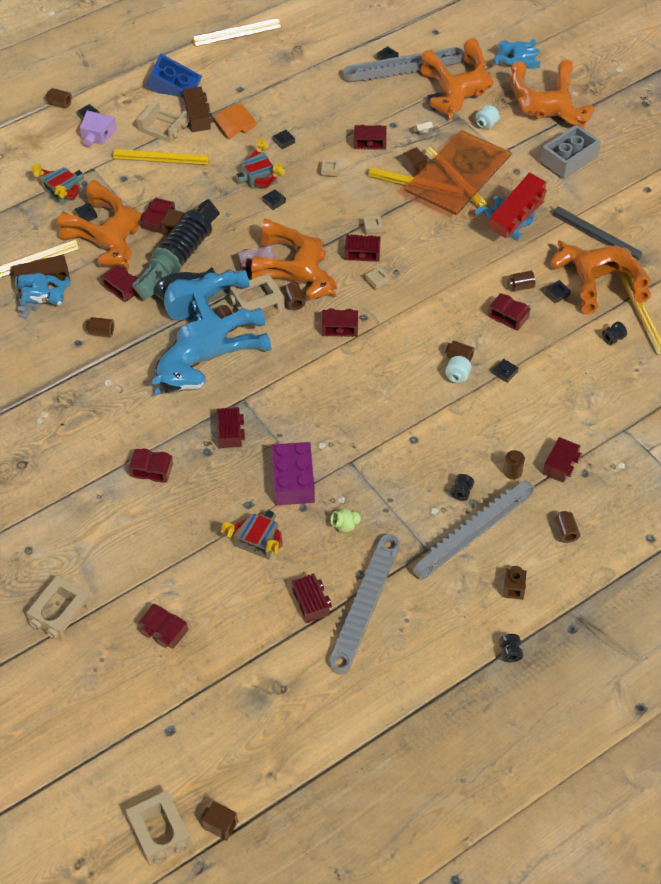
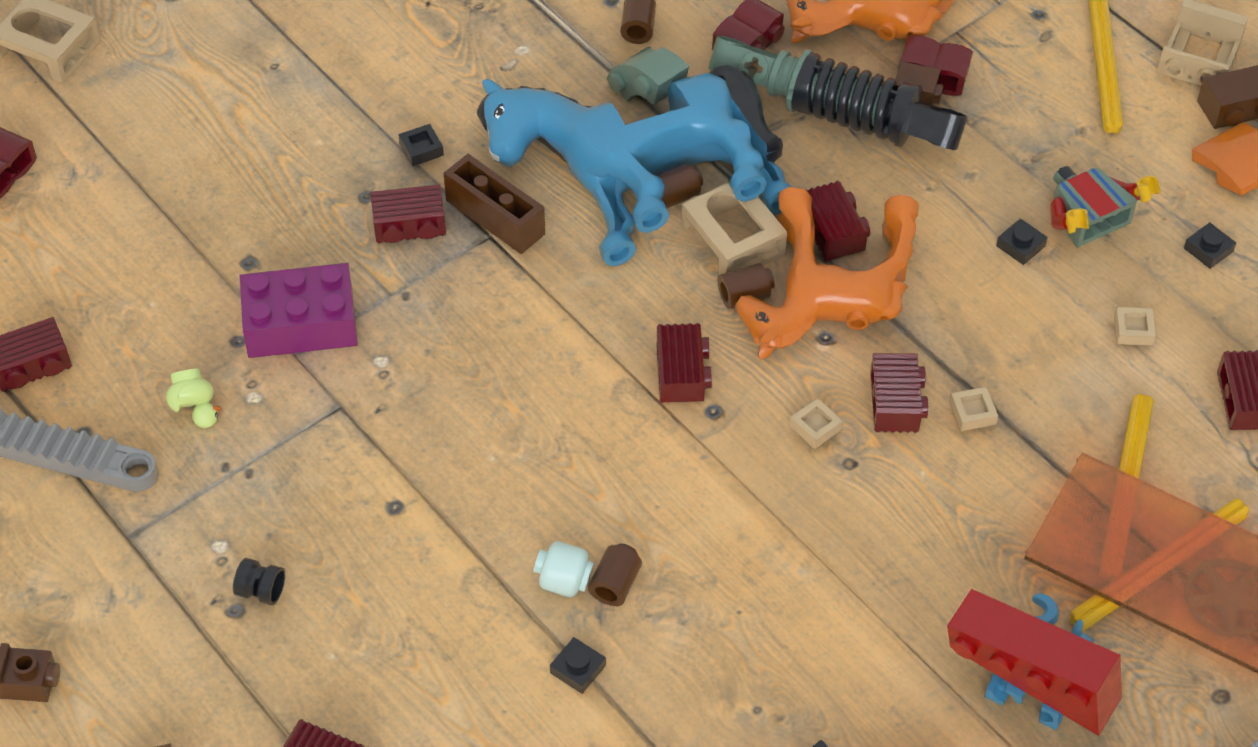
camera: 85 degrees right, 0 degrees up
(150, 321) = (647, 74): none -> sand green brick
(151, 465) = (326, 116): dark red brick -> none
(178, 423) = (421, 144): none -> black plate
(232, 387) = (494, 203): none -> reddish brown brick
(256, 534) = (165, 269): torso -> none
(414, 161) = (1188, 474): reddish brown brick -> none
(473, 529) = (161, 604): light grey gear -> none
(509, 311) = (742, 666): dark red brick -> none
(514, 464) = (309, 670): reddish brown brick -> none
(521, 281) = (838, 693): reddish brown brick -> none

